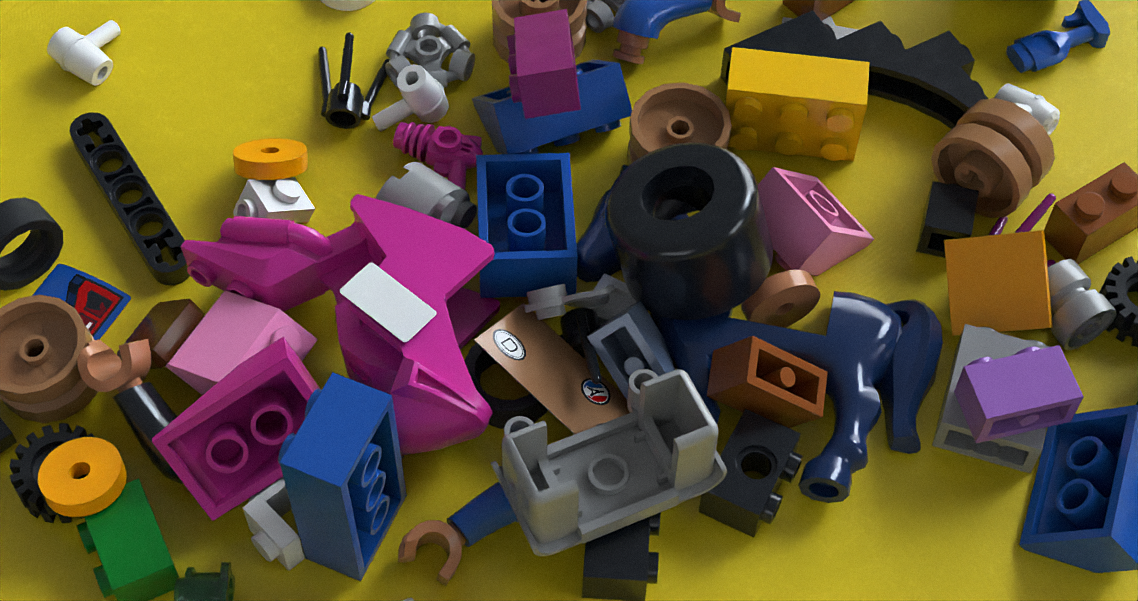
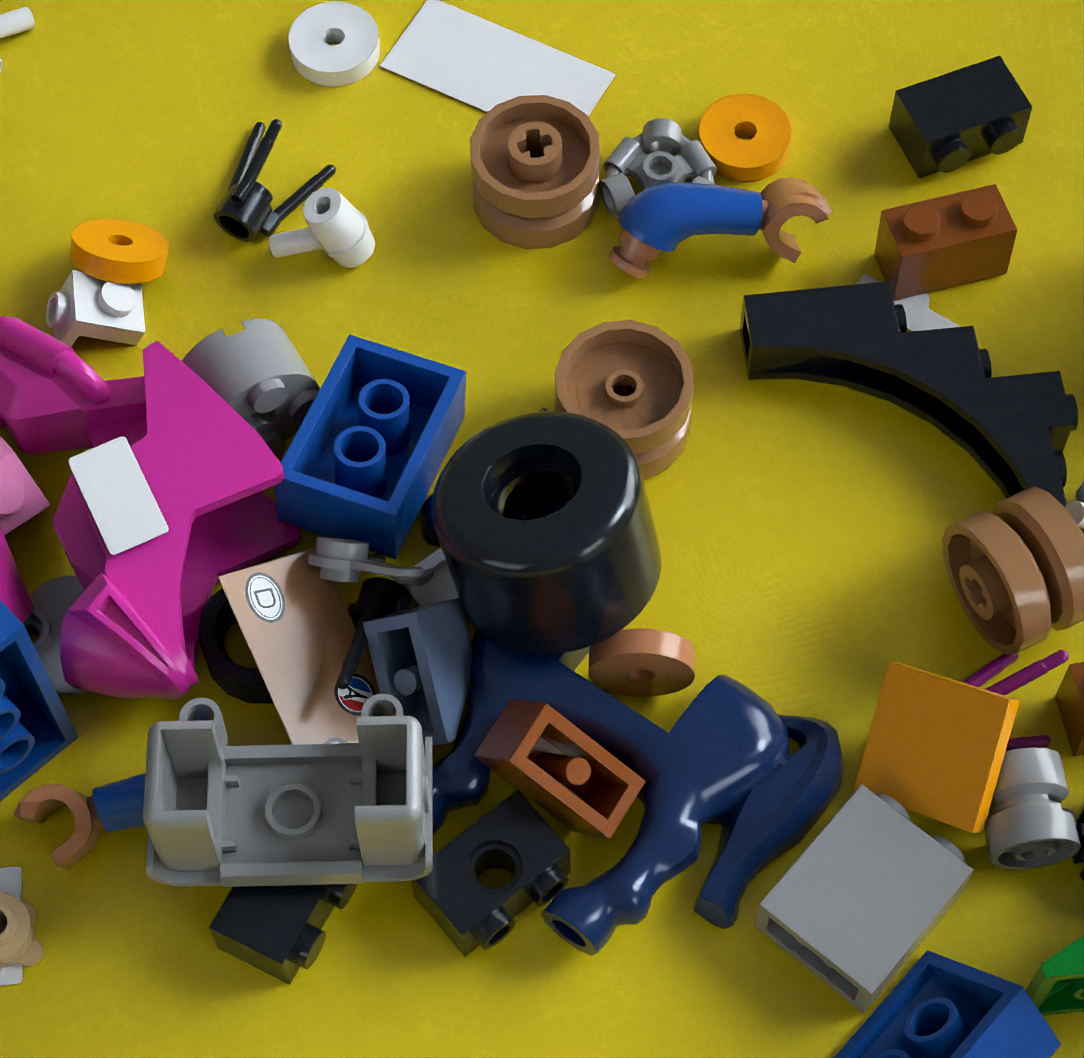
camera: 25 degrees right, 5 degrees up
(424, 47) = (393, 165): light grey piece -> none
(442, 148) = (331, 308): dark pink piece -> none
(543, 64) = (482, 245): magenta brick -> none
(602, 103) = (493, 300): blue slope -> none
(796, 103) = (794, 403): yellow brick -> none
(808, 222) = (735, 566): bright pink slope -> none
(946, 216) = (927, 627): black brick -> none
(1017, 393) = (869, 906): medium lavender brick -> none

